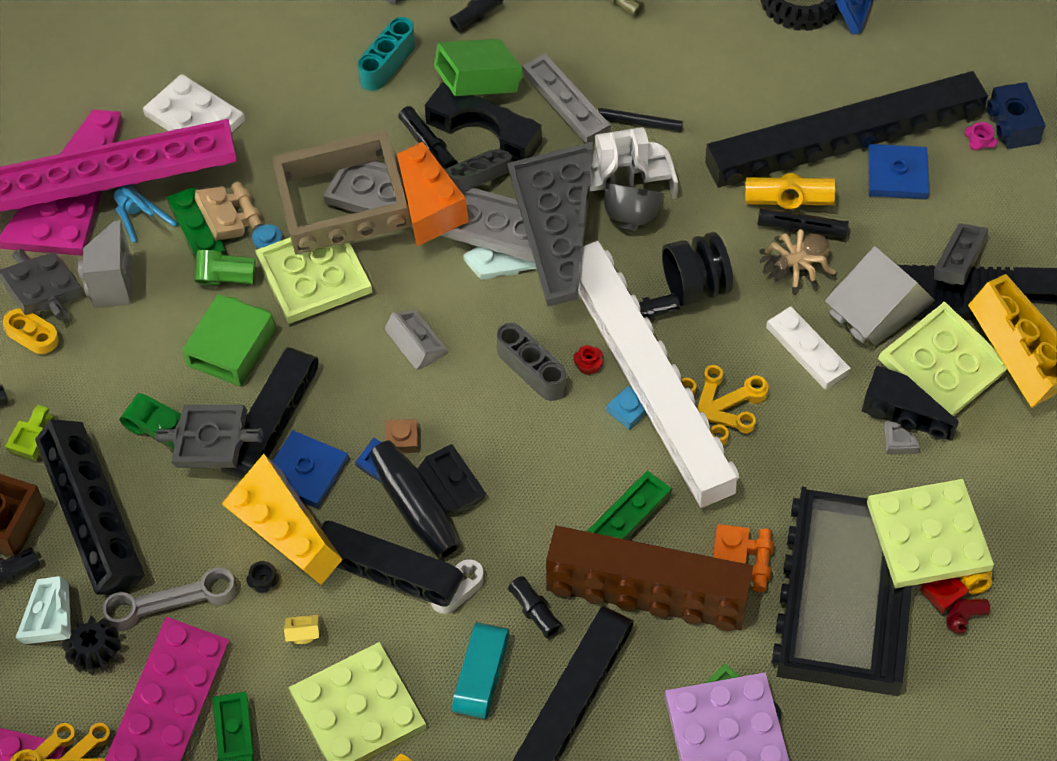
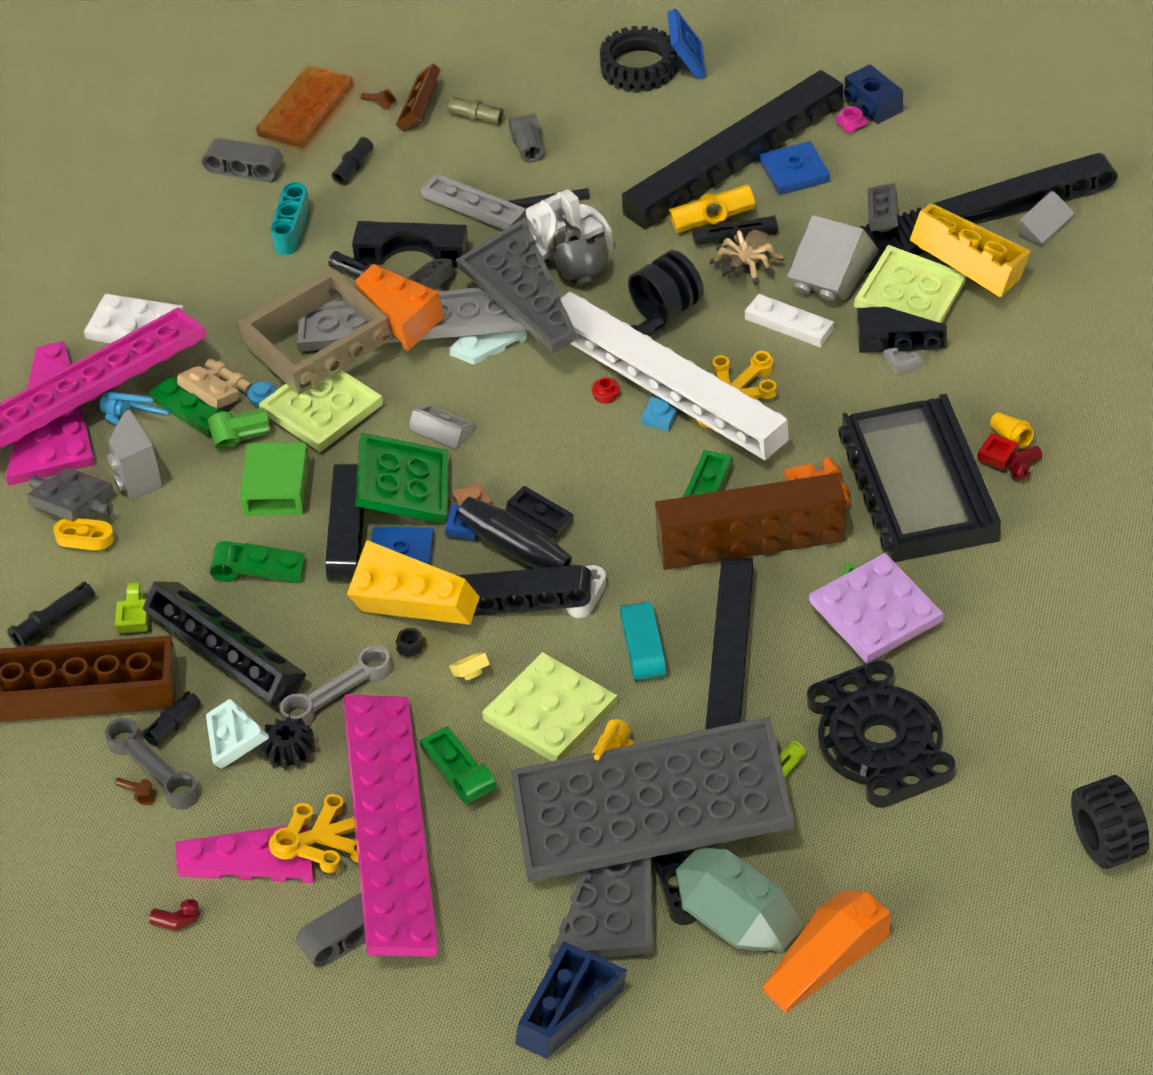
camera: 20 degrees left, 10 degrees down
(209, 436) = (306, 548): dark grey plate -> none
(342, 389) = (402, 478): none -> green plate
(477, 67) = (383, 199): bright green brick -> none
(528, 349) = (557, 406): dark grey beam -> none
(535, 607) = (663, 581): black pin -> none
(652, 38) = (526, 134): none -> dark grey piece
(929, 533) = (966, 409): yellowish green plate -> none

